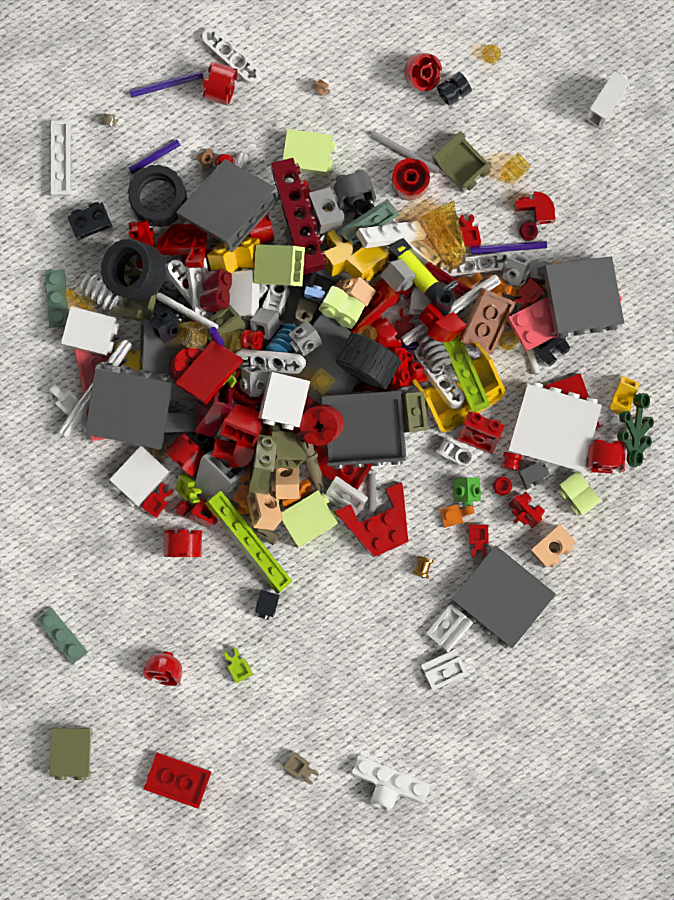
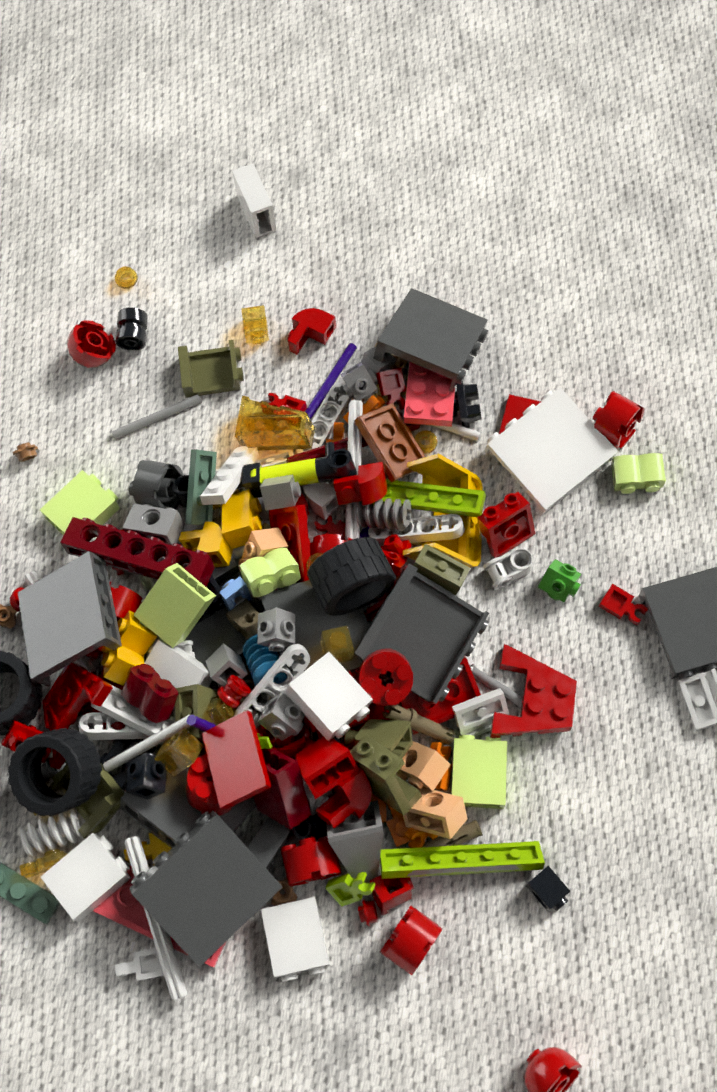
camera: 50 degrees left, 15 degrees down
(156, 502) = (339, 940): red plate -> none
(239, 668) = (606, 977): lime plate -> none
(277, 301) = (208, 641): white piece -> none
(410, 168) = (188, 424): red brick -> none
(423, 567) = (608, 679): pearl gold bush -> none
(453, 515) = (577, 614): orange plate -> none
(502, 486) = (578, 544): red plate -> none
(511, 461) = (557, 517): red wheel -> none
(524, 512) = (622, 538): red hips -> none
(528, 231) = (327, 353): dark red plate -> none
(533, 474) = (587, 505): dark grey brick -> none
(561, 538) = (678, 547): light nougat brick -> none
(623, 395) = (562, 367): yellow brick -> none
(635, 451) = (605, 368): dark green plant -> none

